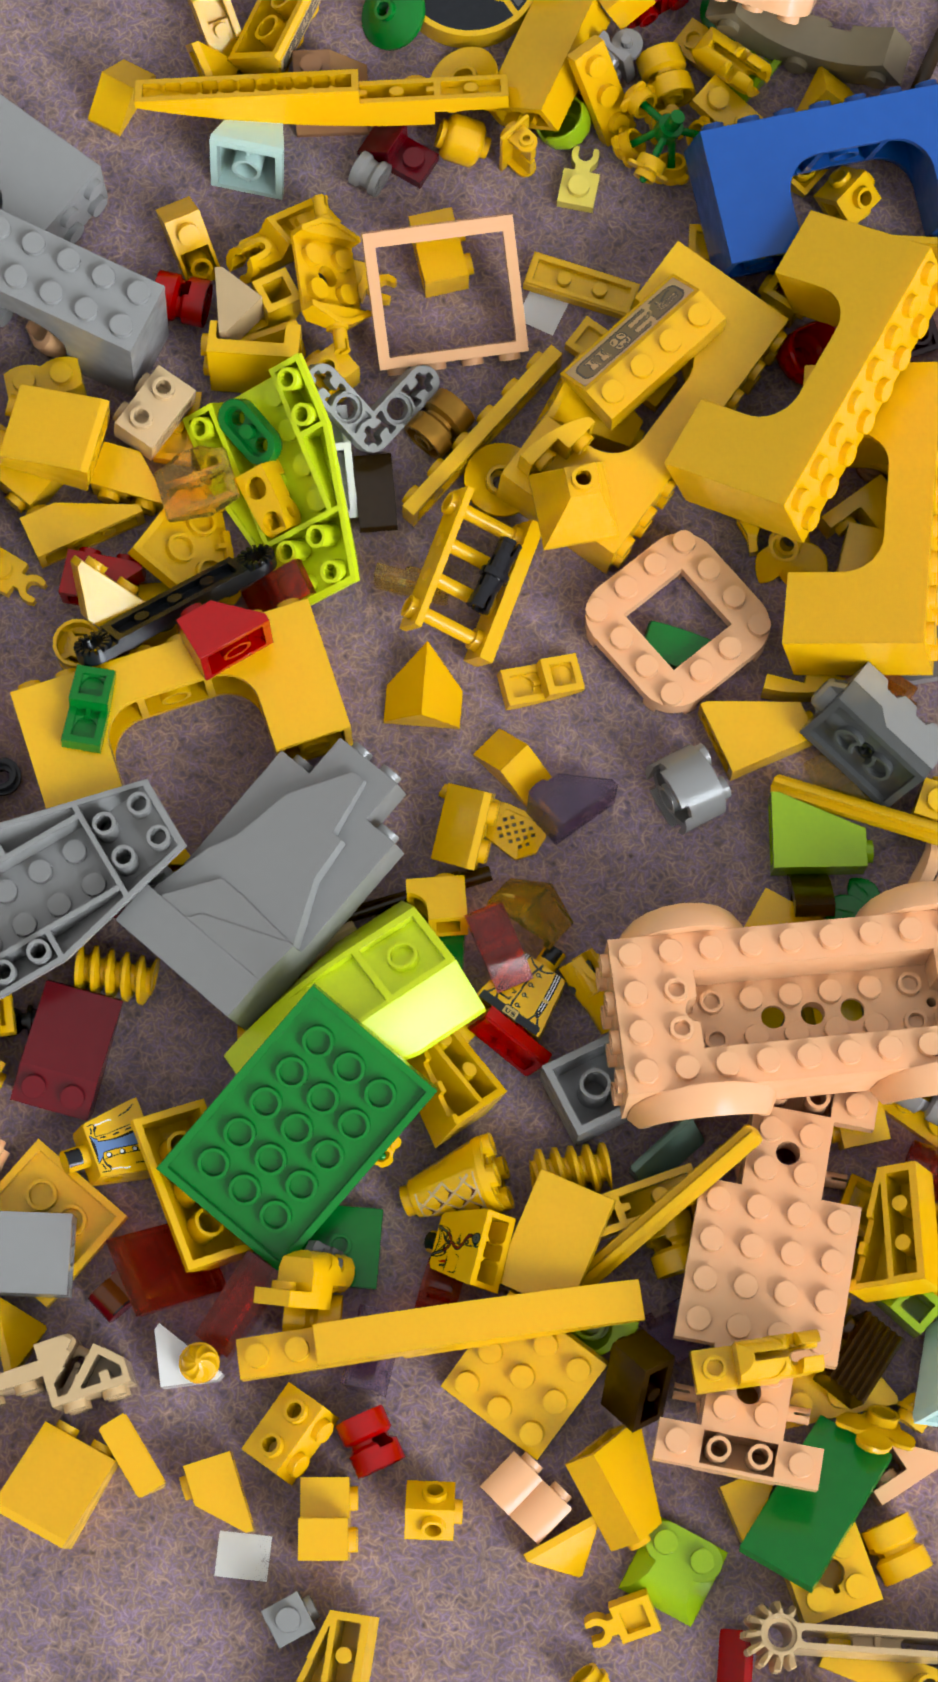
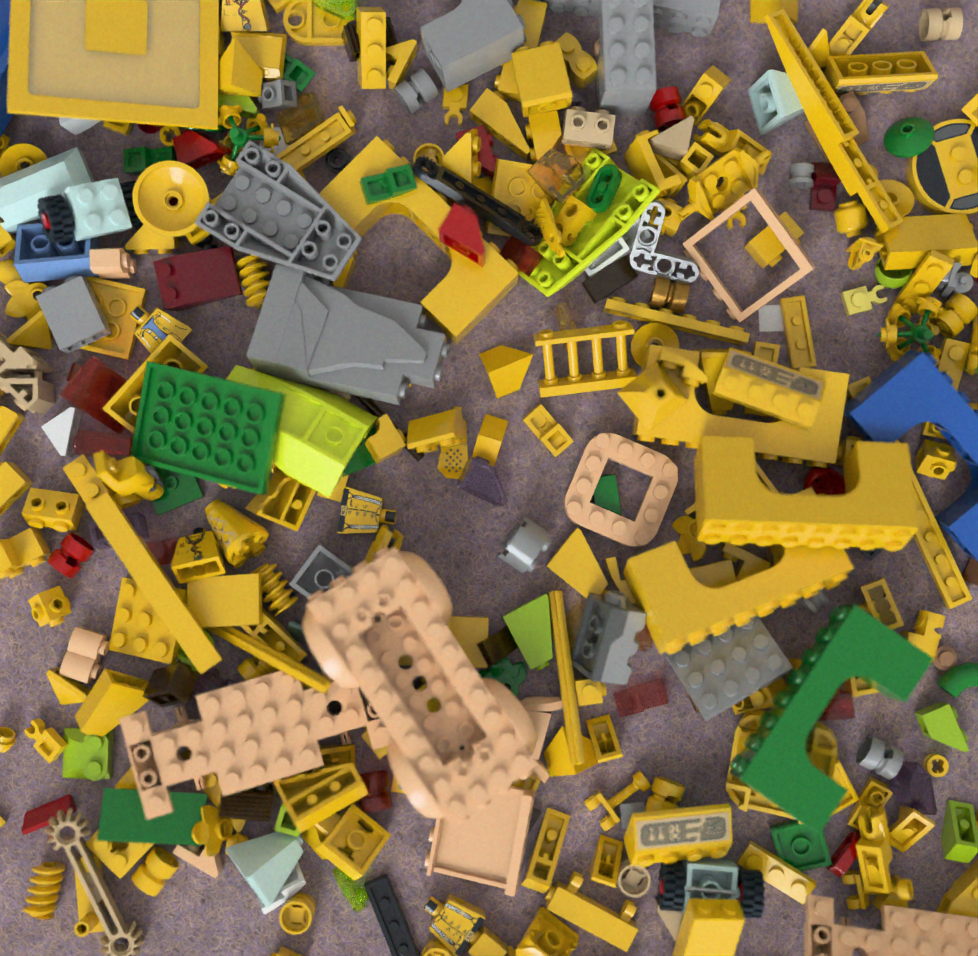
camera: 60 degrees right, 10 degrees up
(199, 1362) = (61, 440): yellow plate -> none
(250, 530) = (545, 220): none -> yellow piece
(494, 575) = (591, 372): black pin -> none
(499, 946) = (373, 485): clear red slope -> none
(509, 1041) = (328, 519): red plate -> none
(535, 908) = (410, 492): clear yellow slope -> none
(754, 1362) = (196, 751): yellow plate -> none

